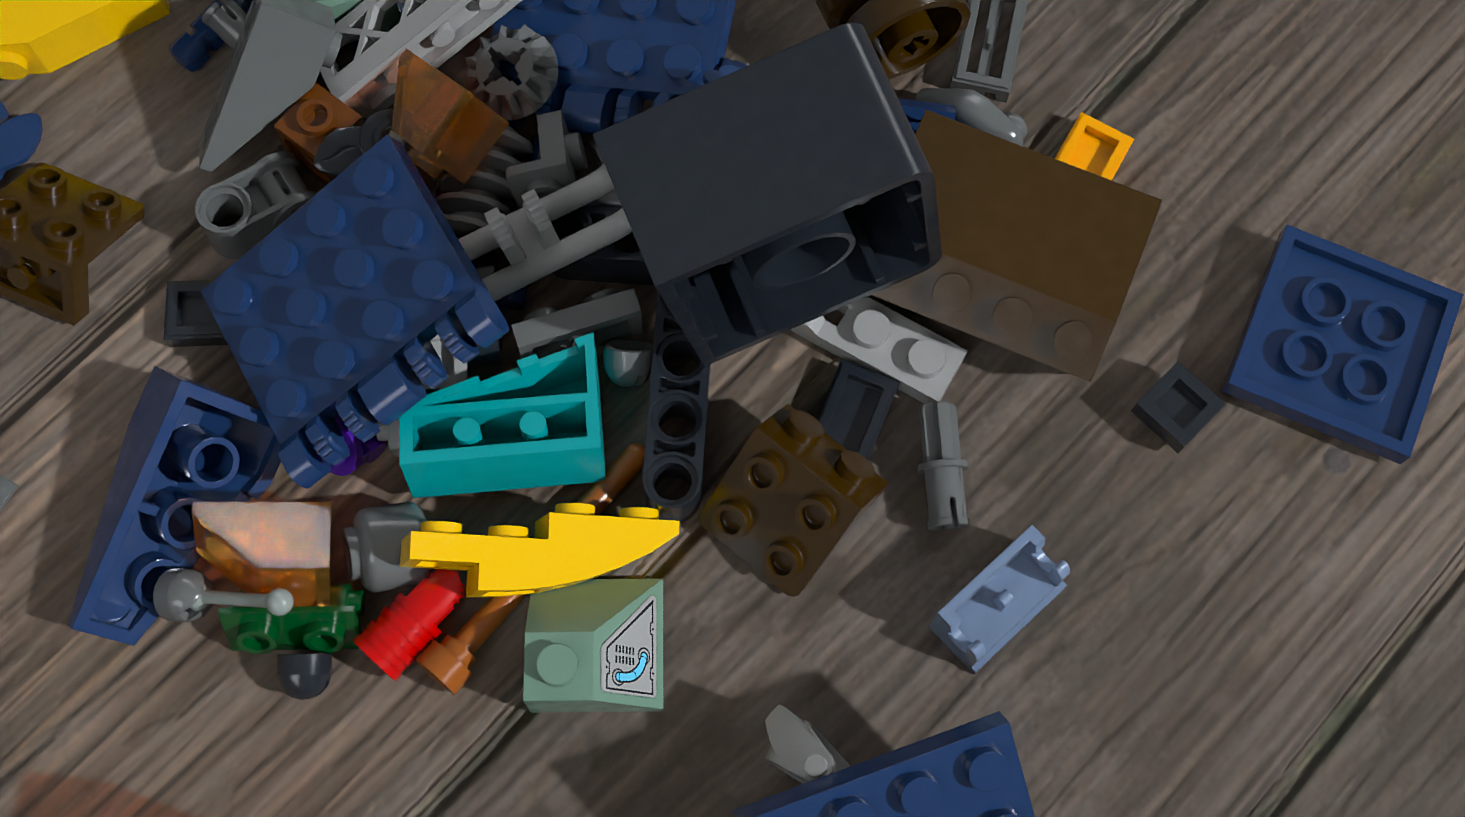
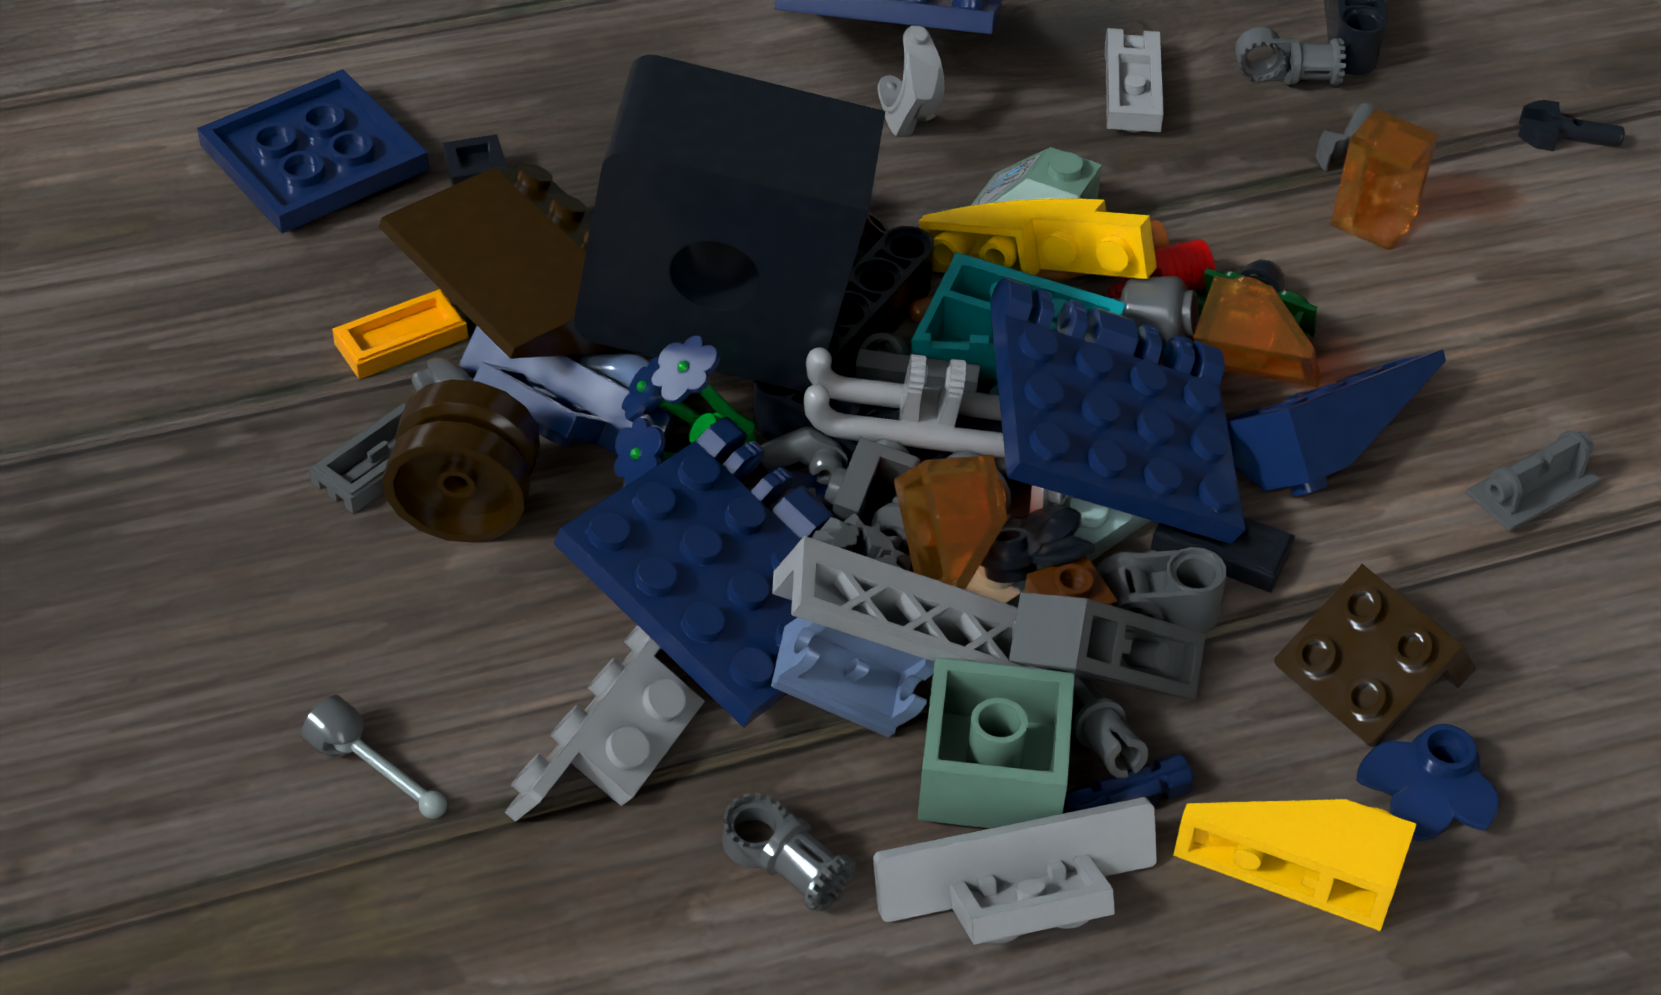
camera: 150 degrees left, 25 degrees down
(189, 595) = (1337, 348): hinge -> none

